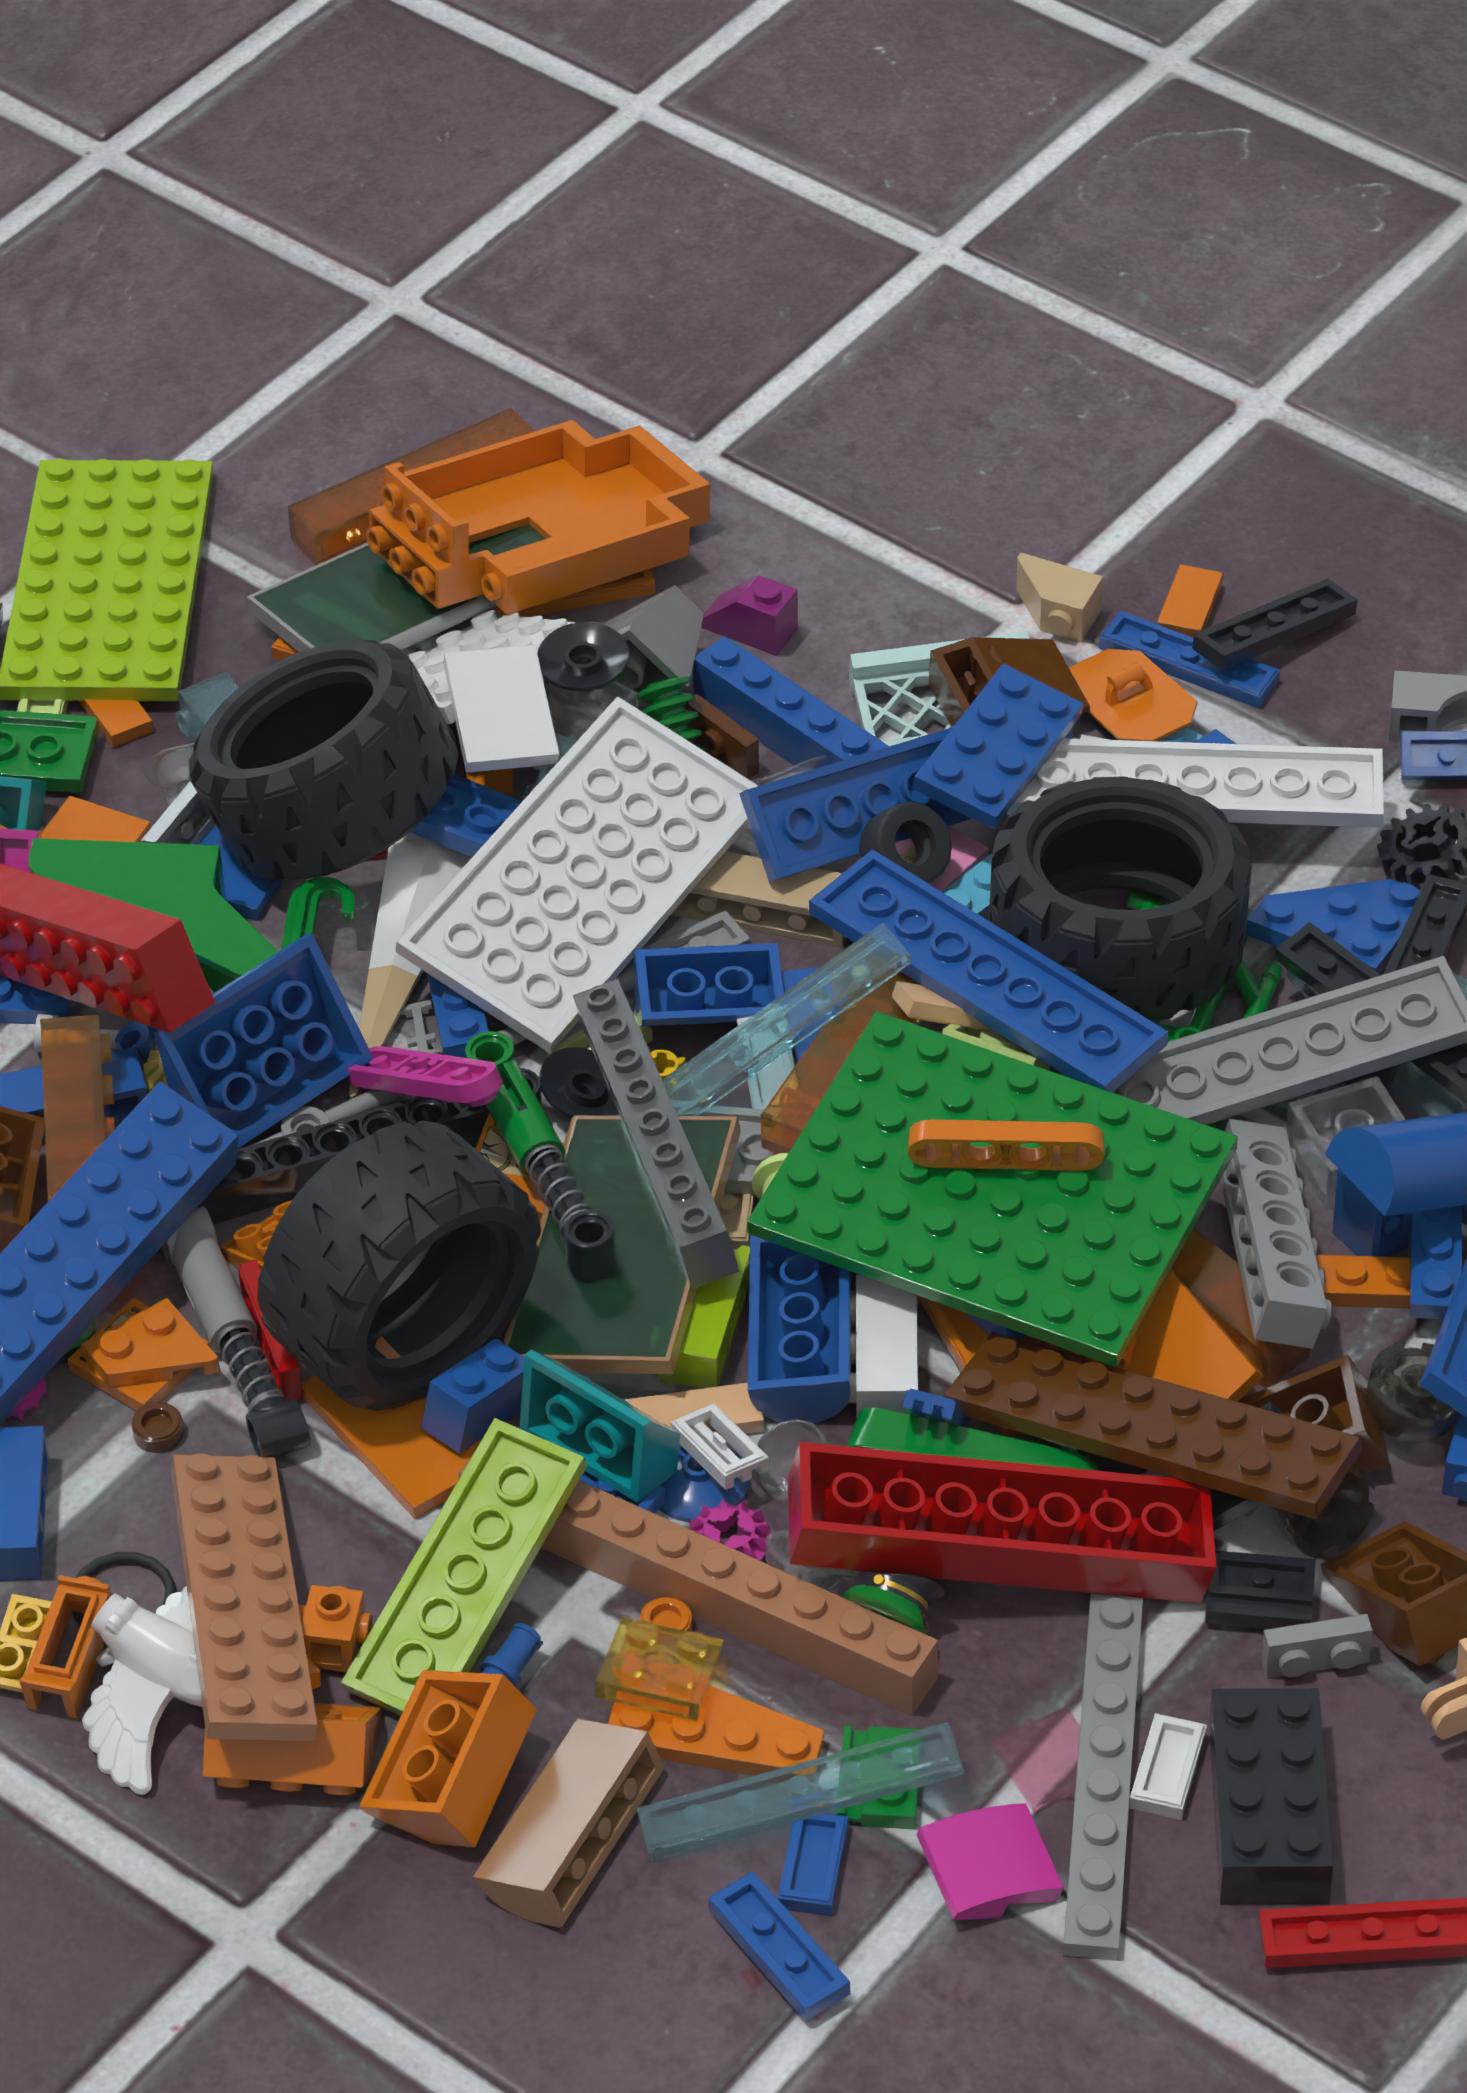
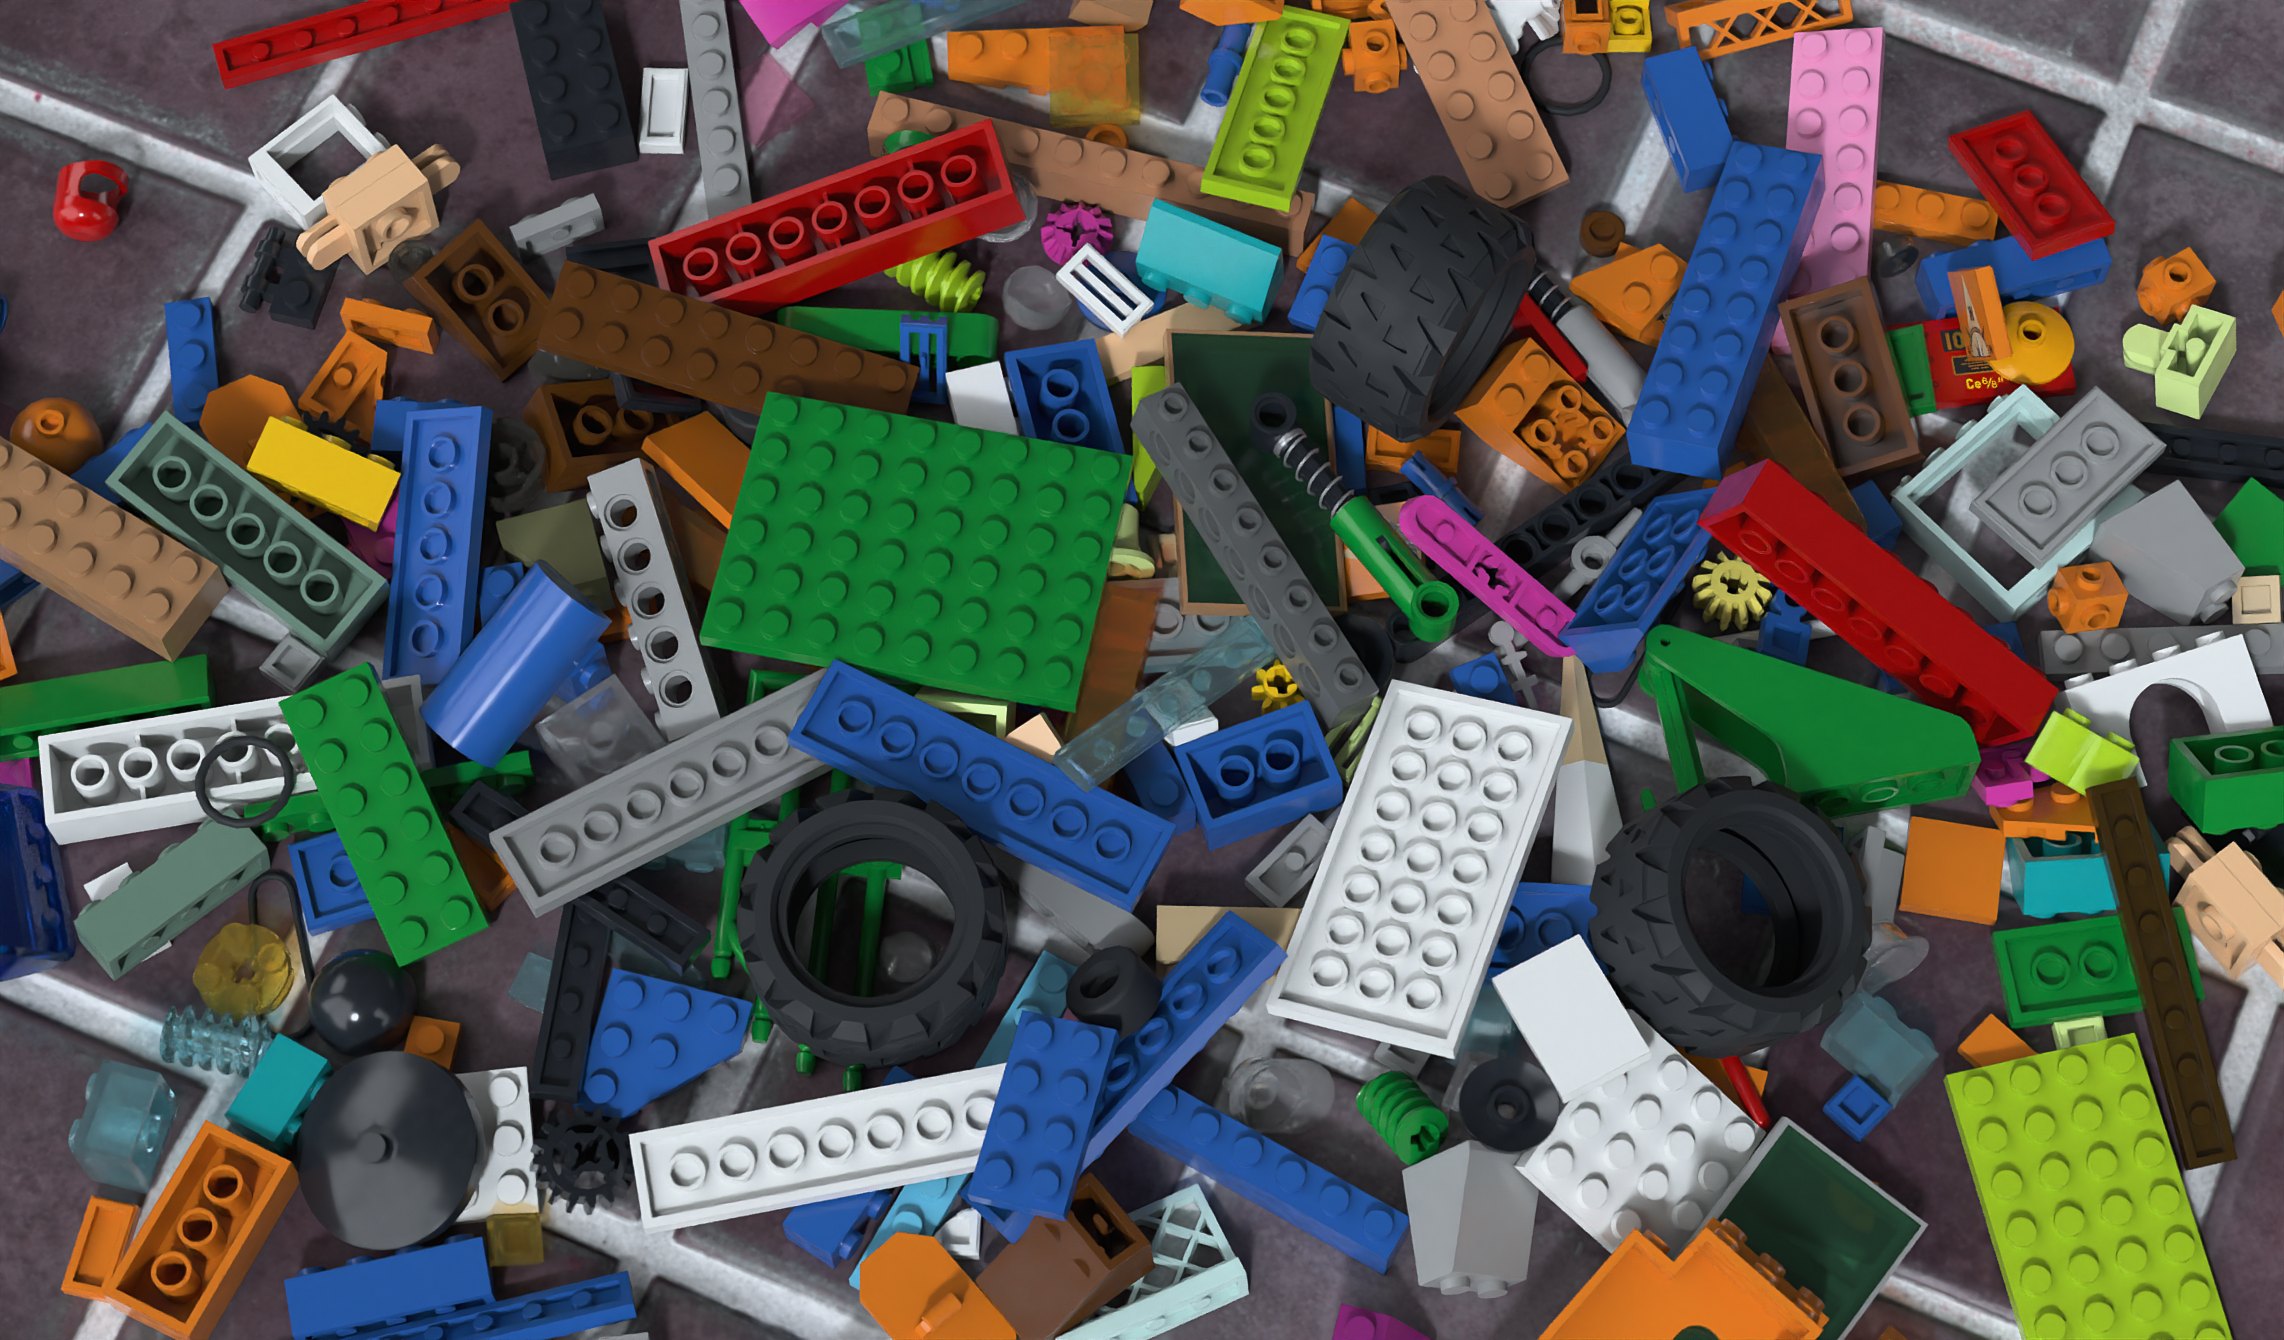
camera: 165 degrees right, 20 degrees up
(725, 738) = (1356, 1152): reddish brown plate -> none
(1063, 1145) = (907, 545): orange beam -> none
(1366, 1302) = (564, 539): none -> olive slope

